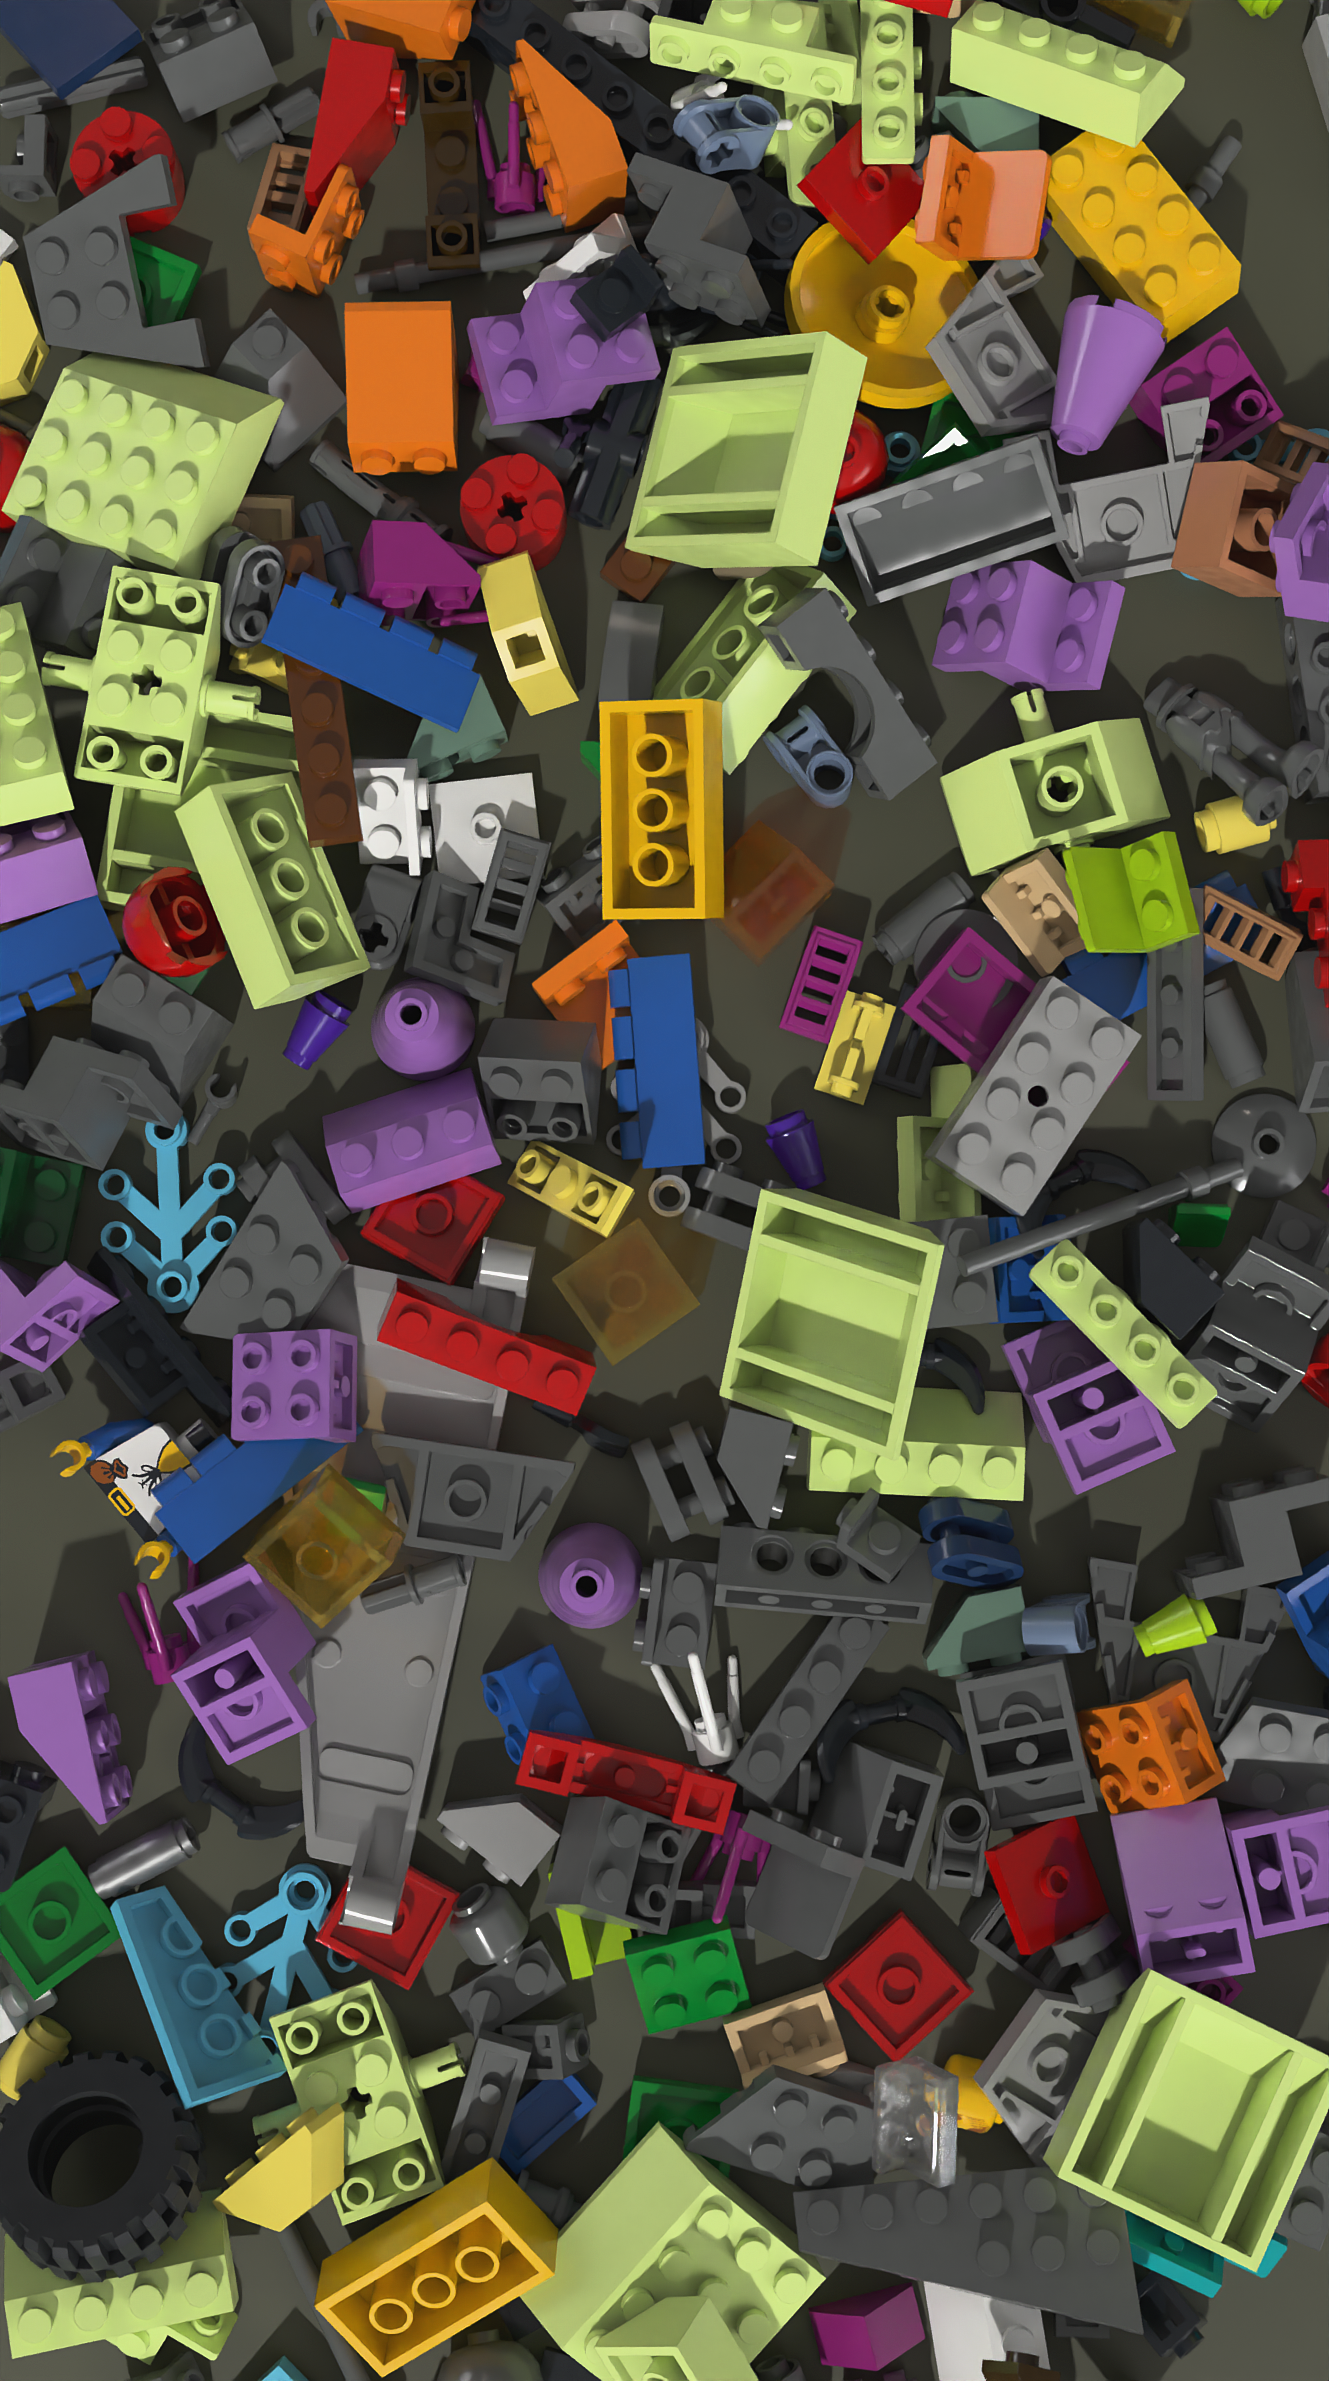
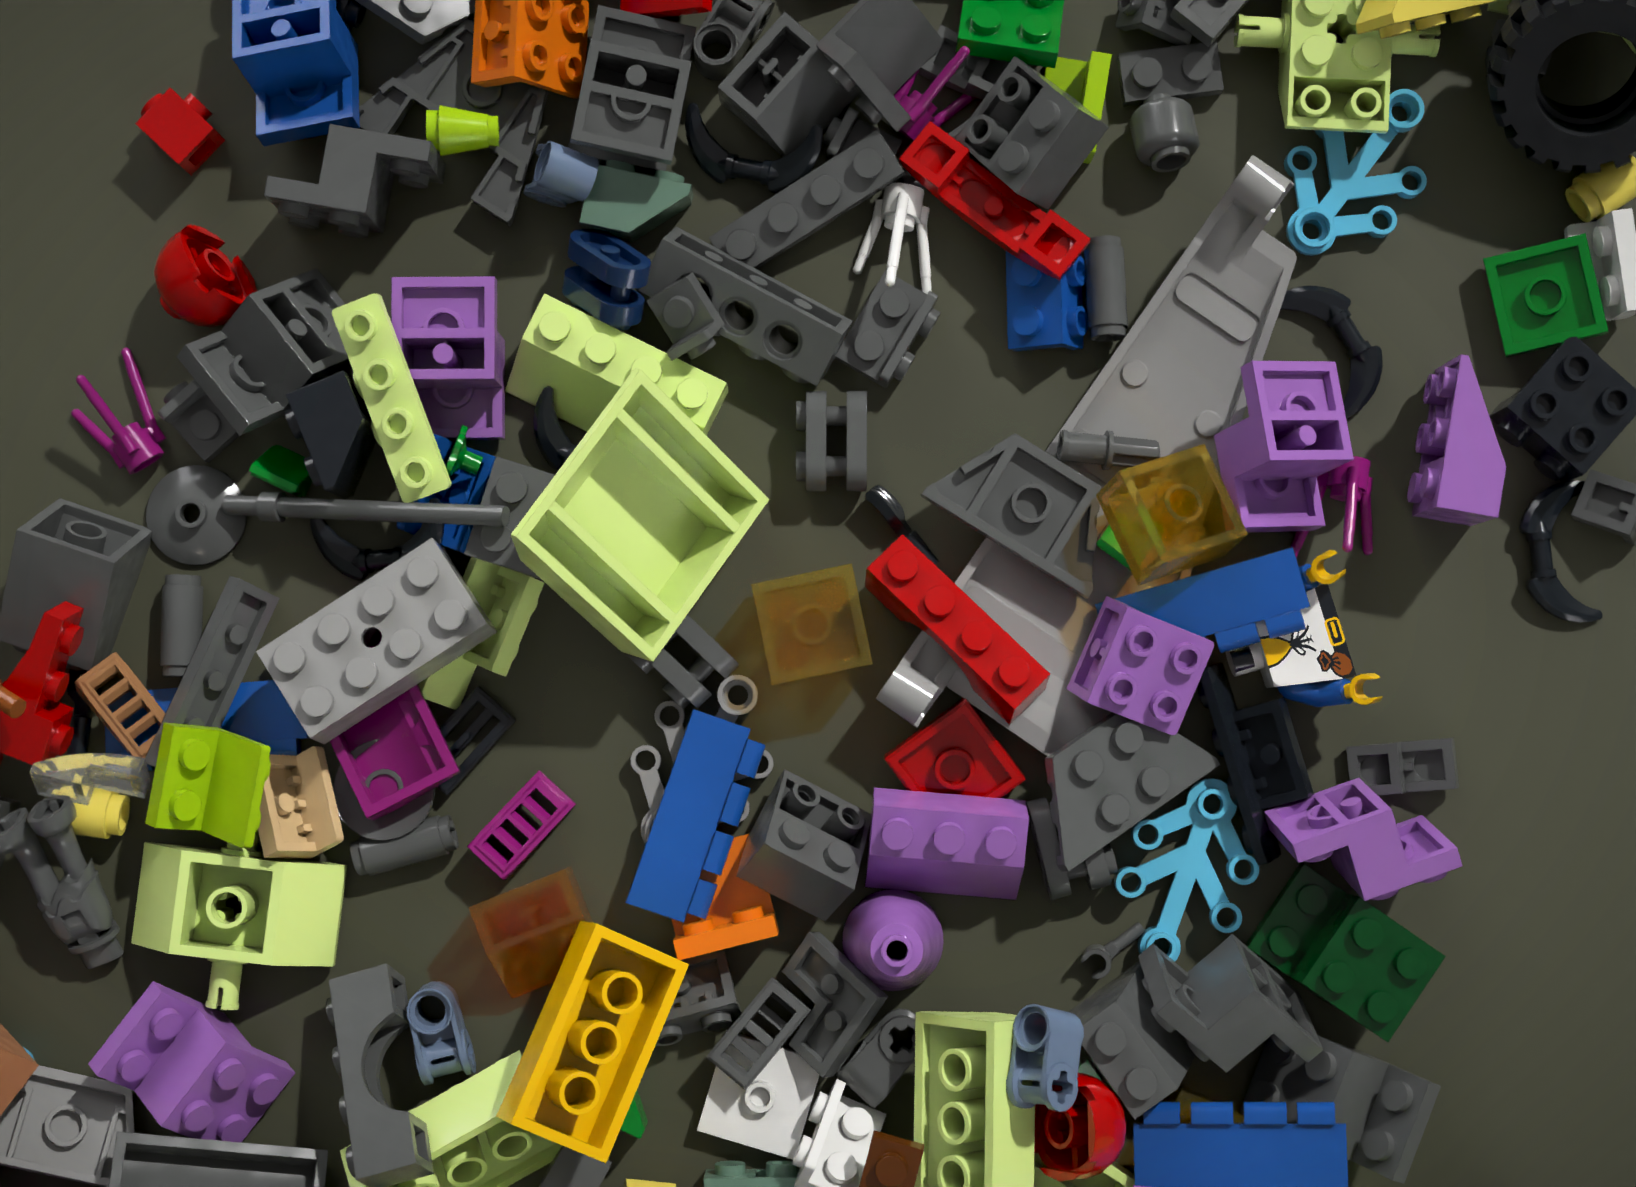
camera: 165 degrees left, 0 degrees up
(144, 1858) = (1440, 316): flat silver piece -> none
(198, 2022) = (1450, 159): medium azure wing -> none
(229, 978) = (1046, 1053): none -> sand blue piece
(316, 1028) = (988, 980): dark purple cone -> none
(419, 1921) = (1219, 163): red plate -> none
(481, 1744) = (1106, 289): none -> dark grey piece
(504, 1830) = (1115, 203): light grey slope -> none
(571, 1188) = (821, 738): light yellow slope -> none
(594, 1552) = (944, 411): medium lavender cone -> none
(752, 1457) = (762, 432): dark grey slope -> none
(797, 1148) = (606, 688): dark purple cone -> none
(855, 1047) = (516, 756): light yellow hinge -> none
(1034, 1307) = (461, 458): none -> green plant
(1257, 850) = (82, 773): none -> clear slope

